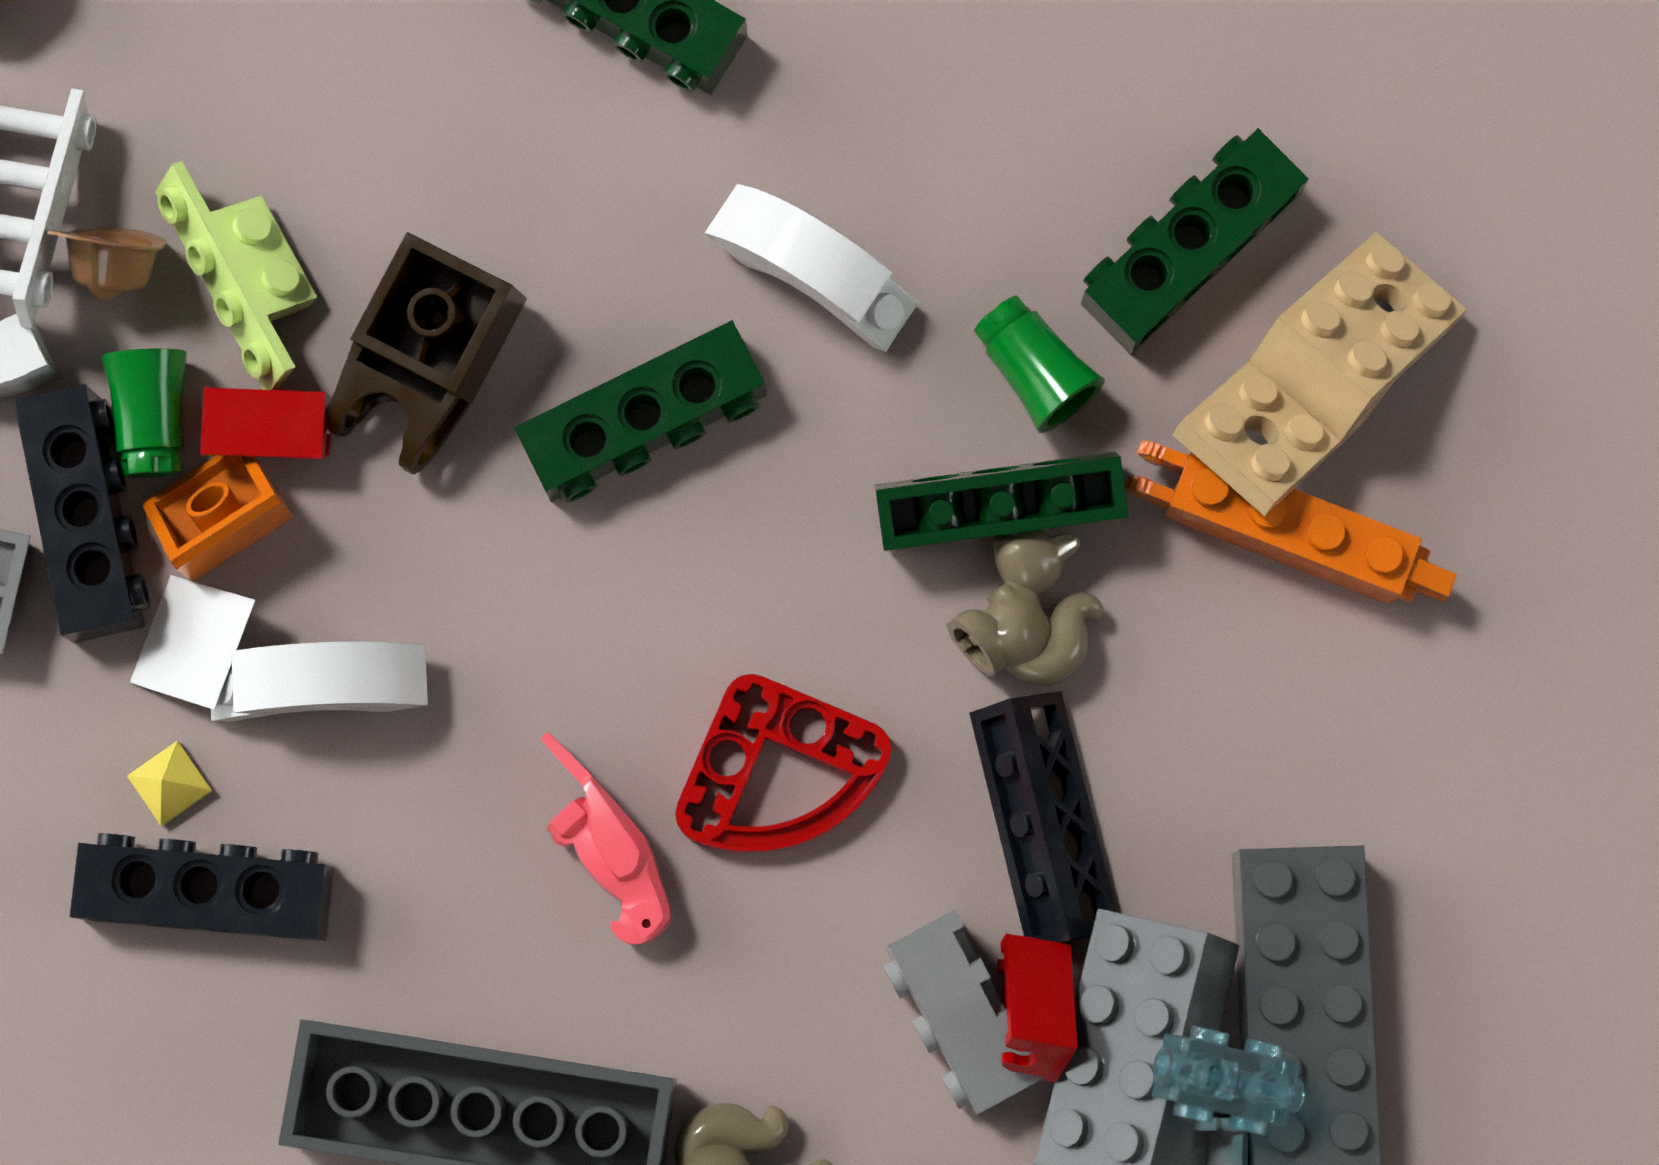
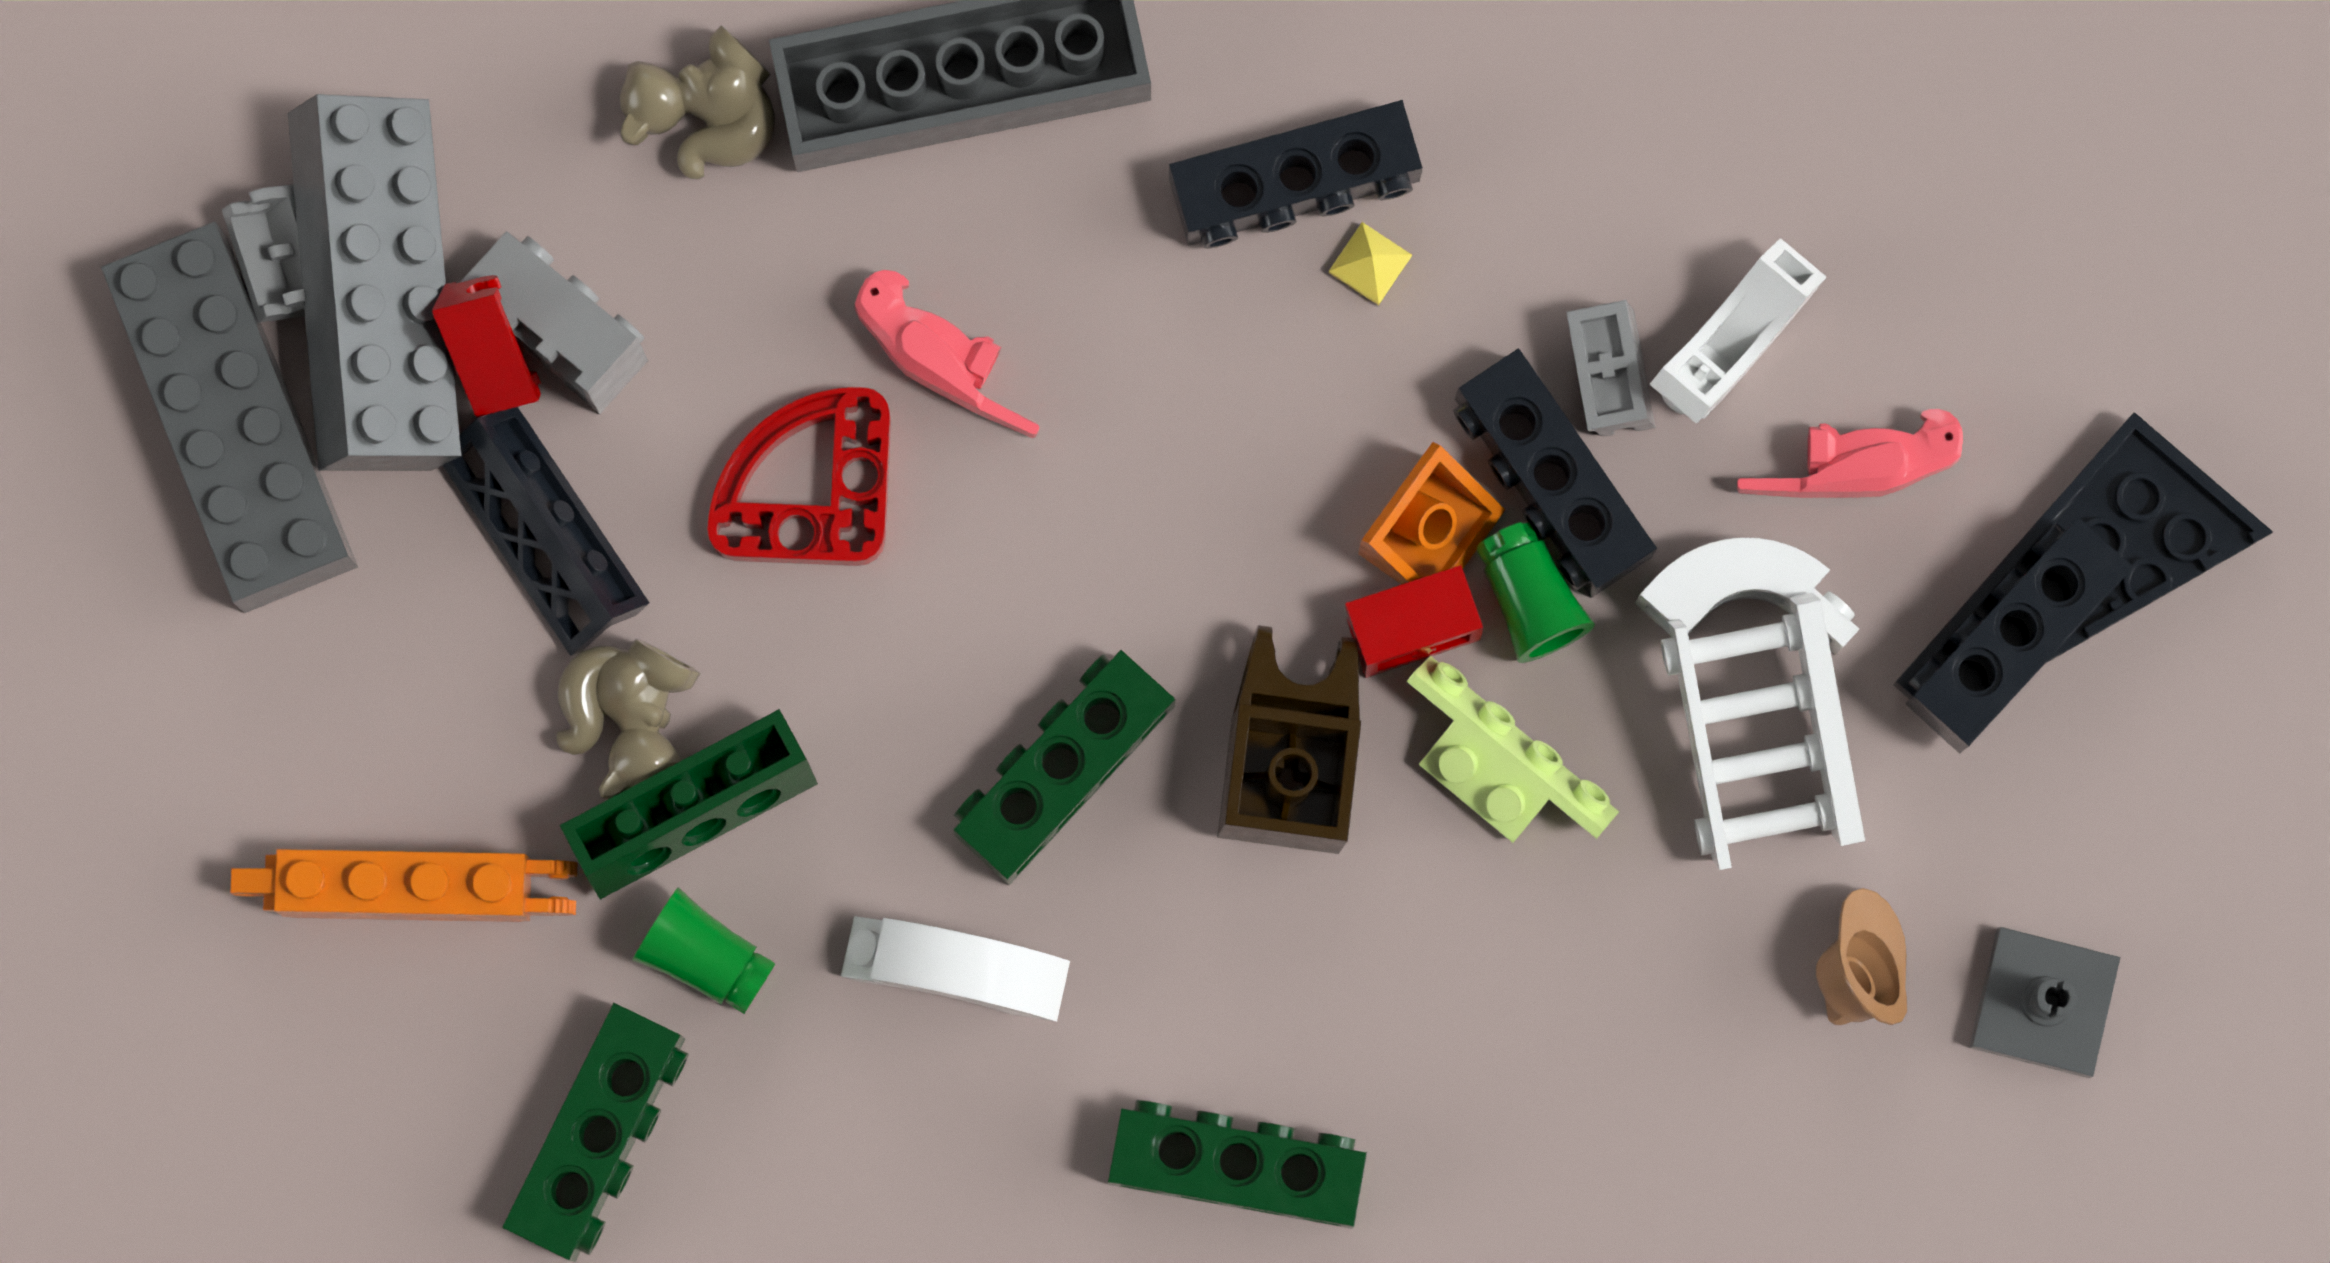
camera: 155 degrees right, 0 degrees up
(111, 258) = (1628, 725): medium nougat piece -> none
(192, 641) = (1399, 394): white sticker -> none
(323, 678) = (1265, 395): white arch -> none
(1247, 1083) = (265, 333): clear light blue brick -> none
(1319, 373) = (425, 1040): tan bracket -> none

